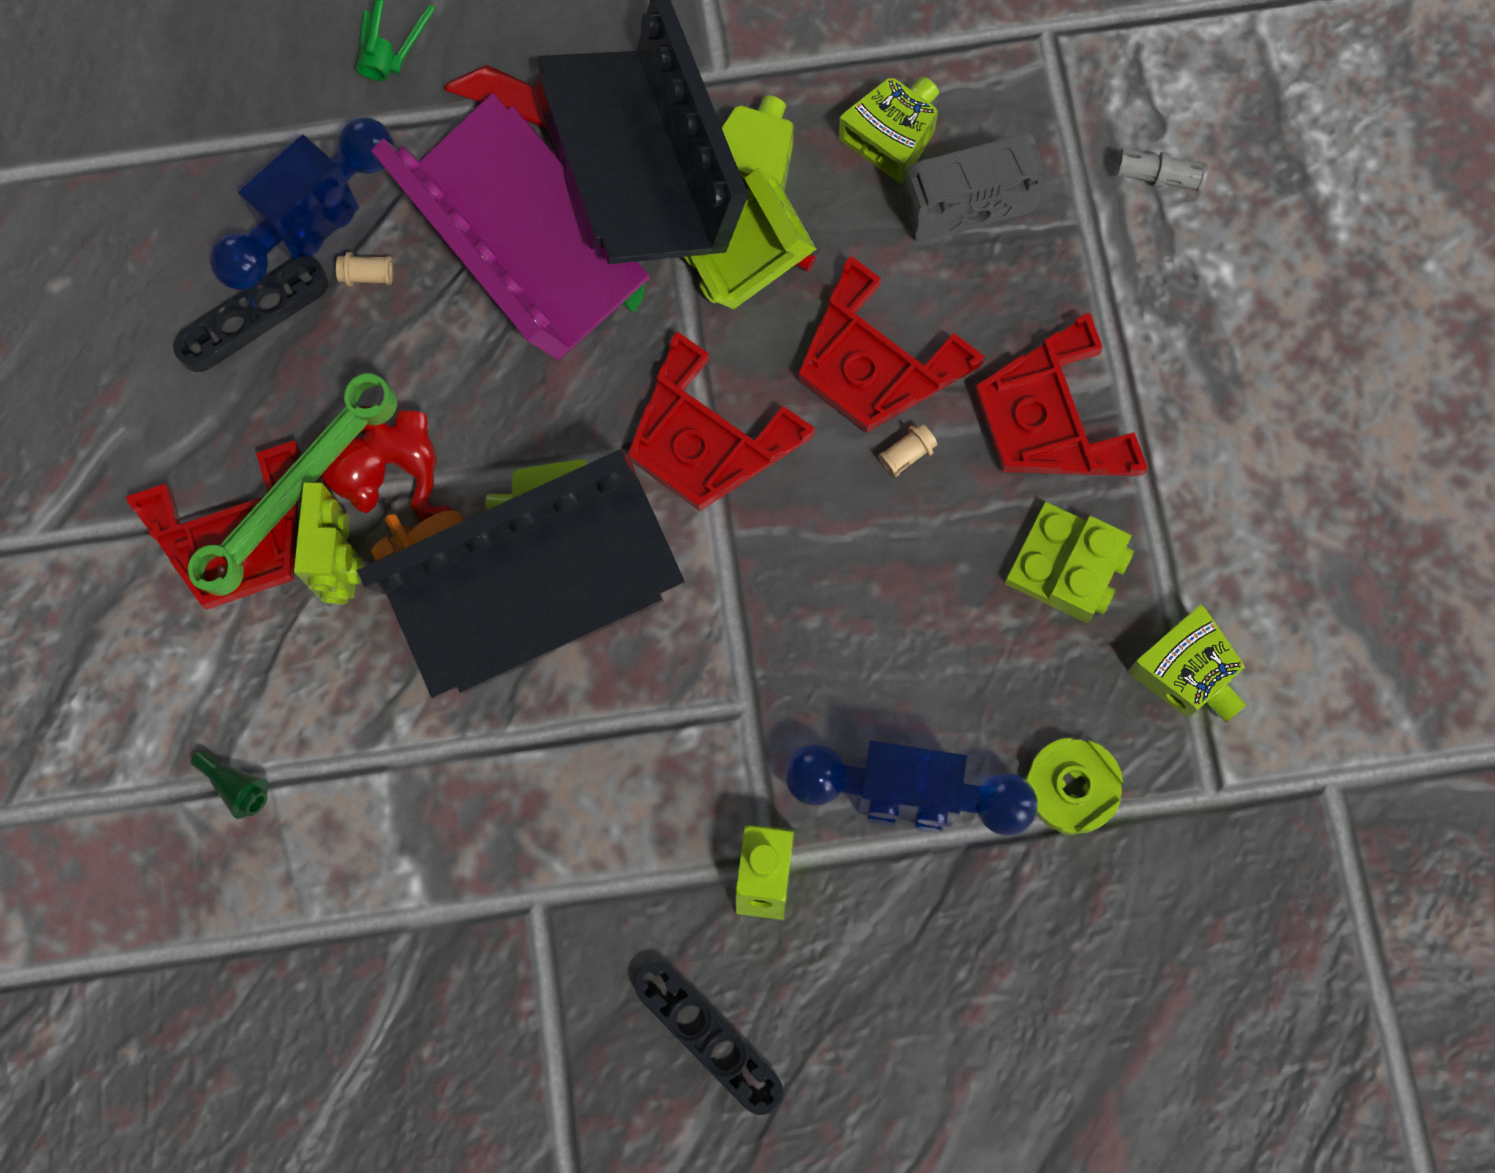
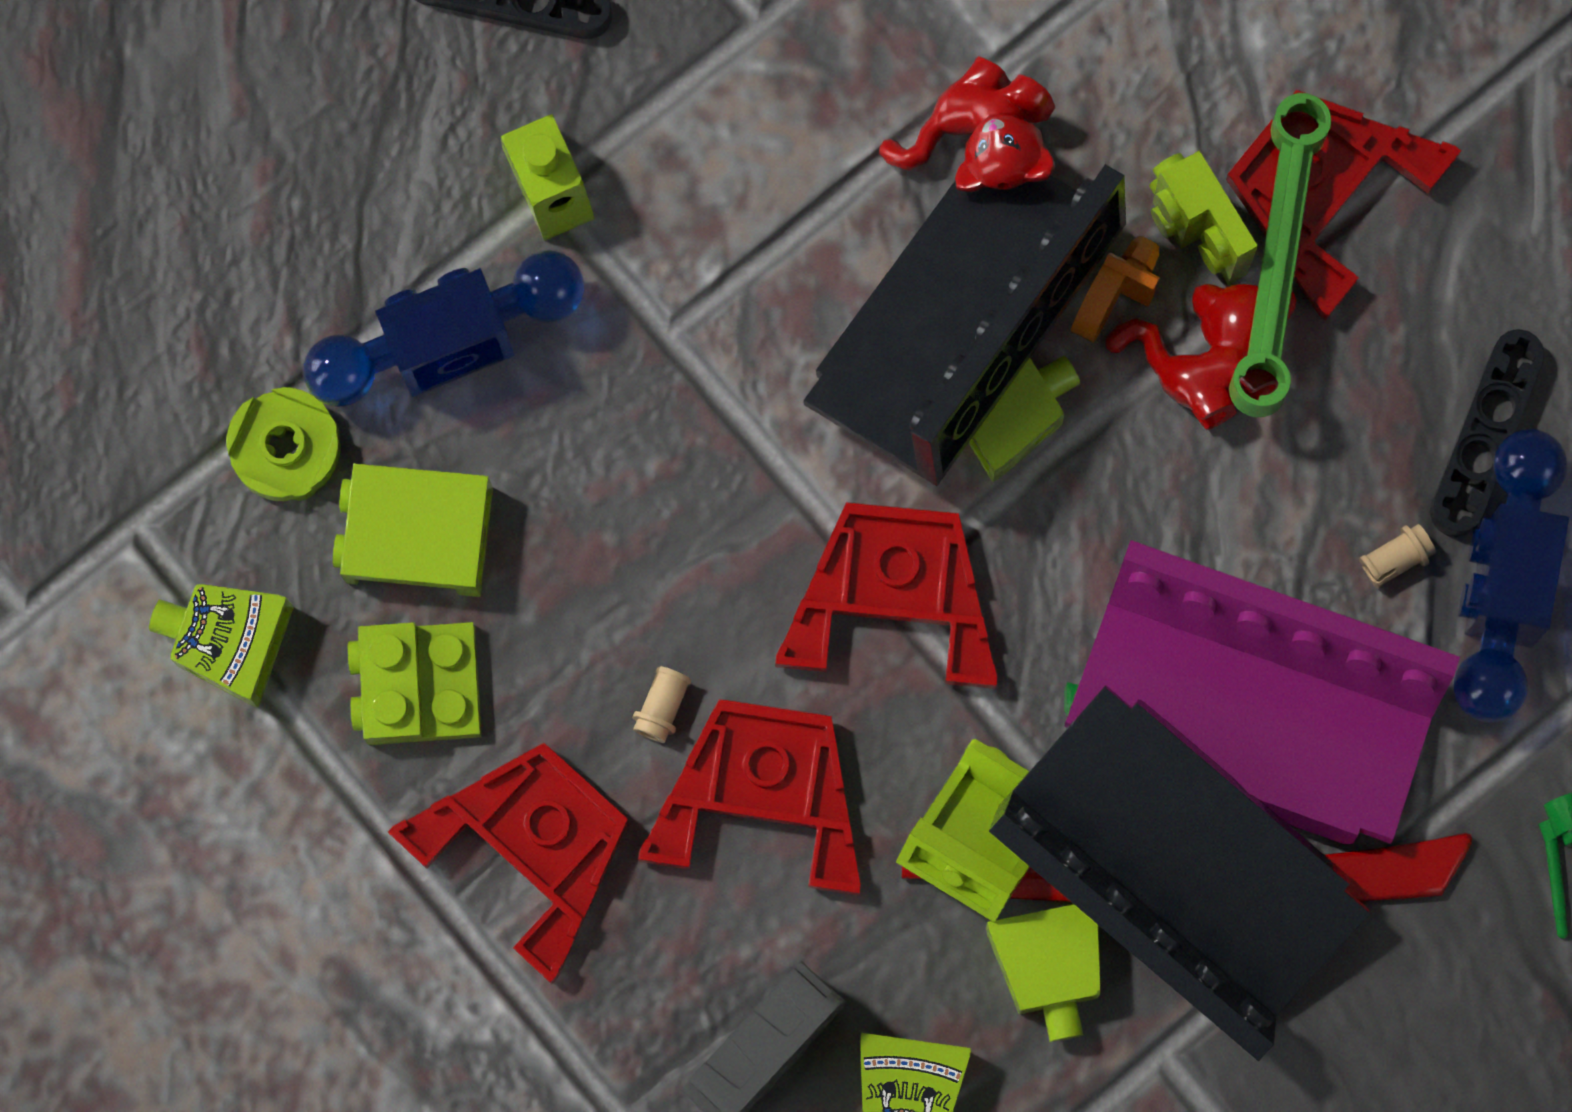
camera: 150 degrees right, 5 degrees up
(427, 676) = (999, 115): none -> red animal
(1014, 662) = (414, 528): none -> lime panel

